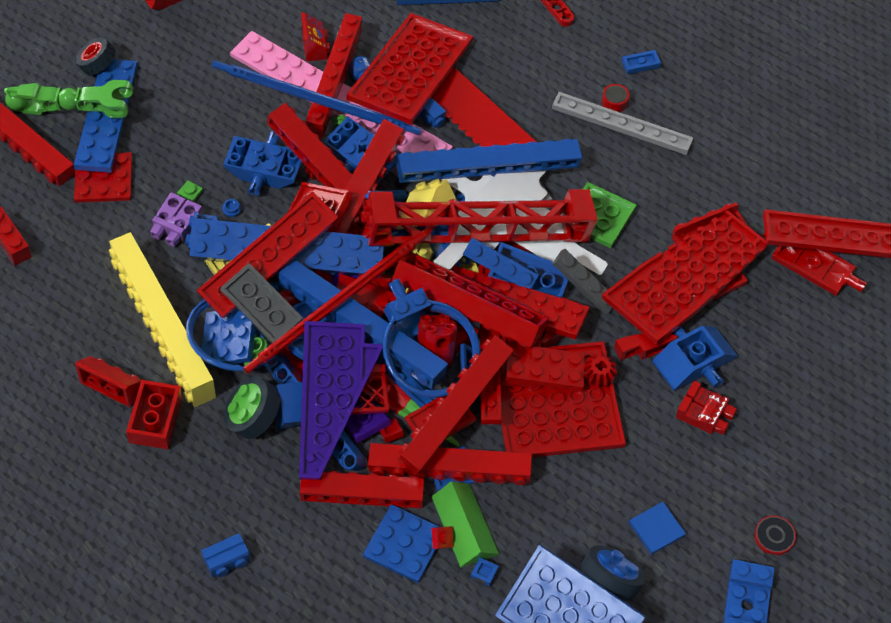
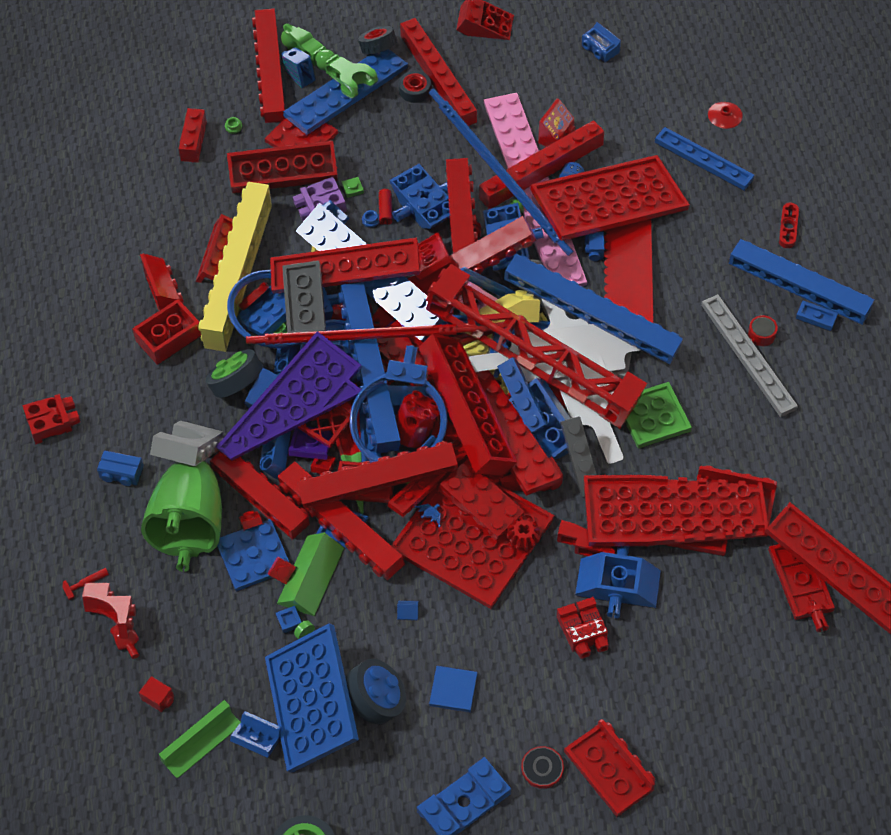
camera: 45 degrees right, 0 degrees up
(34, 205) = (233, 125): none -> bright green plate
(46, 119) = (298, 66): none -> blue torso
(118, 211) = (282, 165): none -> red brick
(121, 559) = (49, 417): none -> red hips
(127, 316) = (215, 248): none -> red fence
(162, 84) = (414, 86): none -> black wheel
(168, 51) = (437, 70): none -> red brick
(203, 331) = (253, 296): none -> red tile
(234, 190) = (385, 206): none -> red piece
(275, 490) = (187, 444): none -> light grey arch
(325, 546) = (184, 513): none -> bright green windscreen
(377, 517) = (250, 519): none -> red plate
(505, 570) = (304, 629): none -> bright green tile
(513, 406) = (430, 512): none -> blue piece
(565, 494) = (407, 610): none -> blue slope
(606, 43) = (801, 281): none -> blue brick
(822, 497) = (610, 767): none -> red bracket

